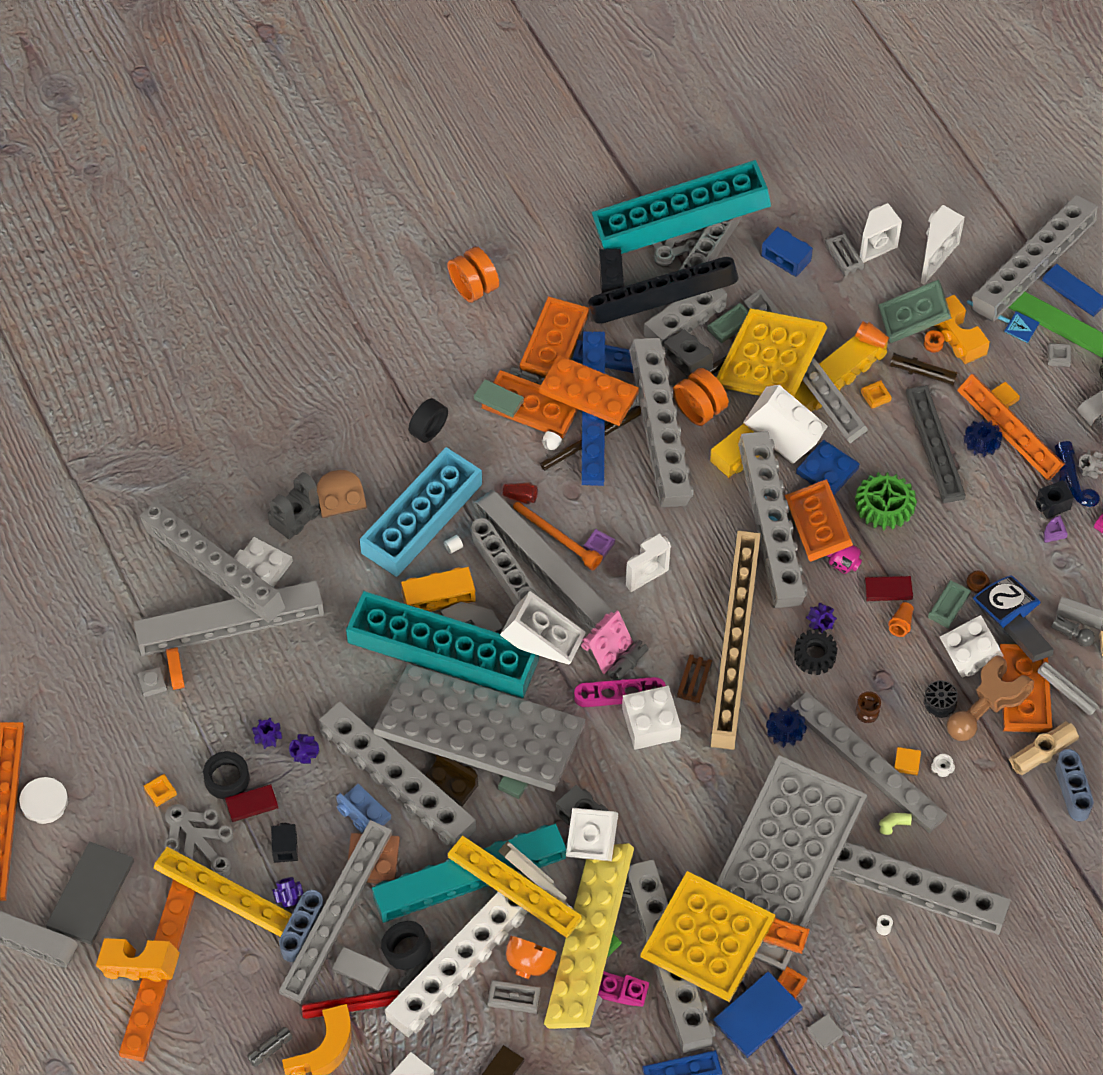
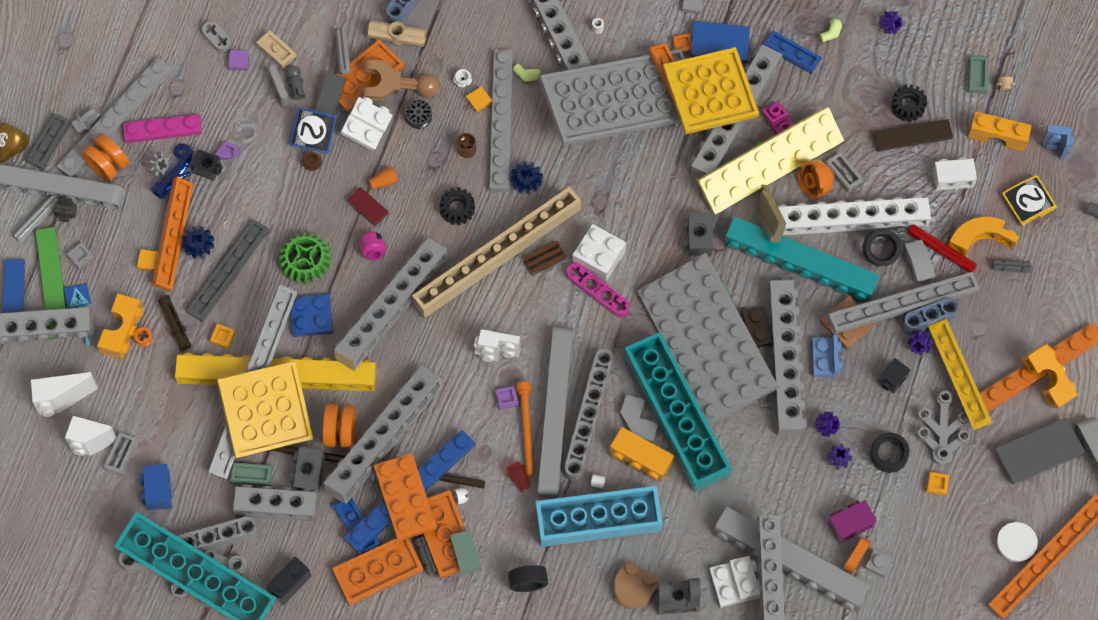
camera: 135 degrees left, 10 degrees up
(205, 690) = (851, 521): none -> magenta brick
(251, 803) = (888, 422): dark red tile -> none
(514, 886) = (789, 208): yellow plate -> none
(542, 630) = (615, 350): white slope -> none
(592, 834) = (714, 205): white plate -> none
(608, 640) = (584, 315): bright pink hinge -> none
(628, 660) = (573, 303): dark grey pin -> none
(663, 290) = (265, 523): black beam -> none
(787, 422) = (311, 352): white slope -> none
(818, 520) = (364, 276): orange plate -> none
(821, 617) = (431, 220): dark purple gear -> none
(871, 335) = (187, 363): orange cone -> none
(914, 311) = (134, 361): sand green tile -> none
(949, 604) = (344, 165): sand green tile -> none

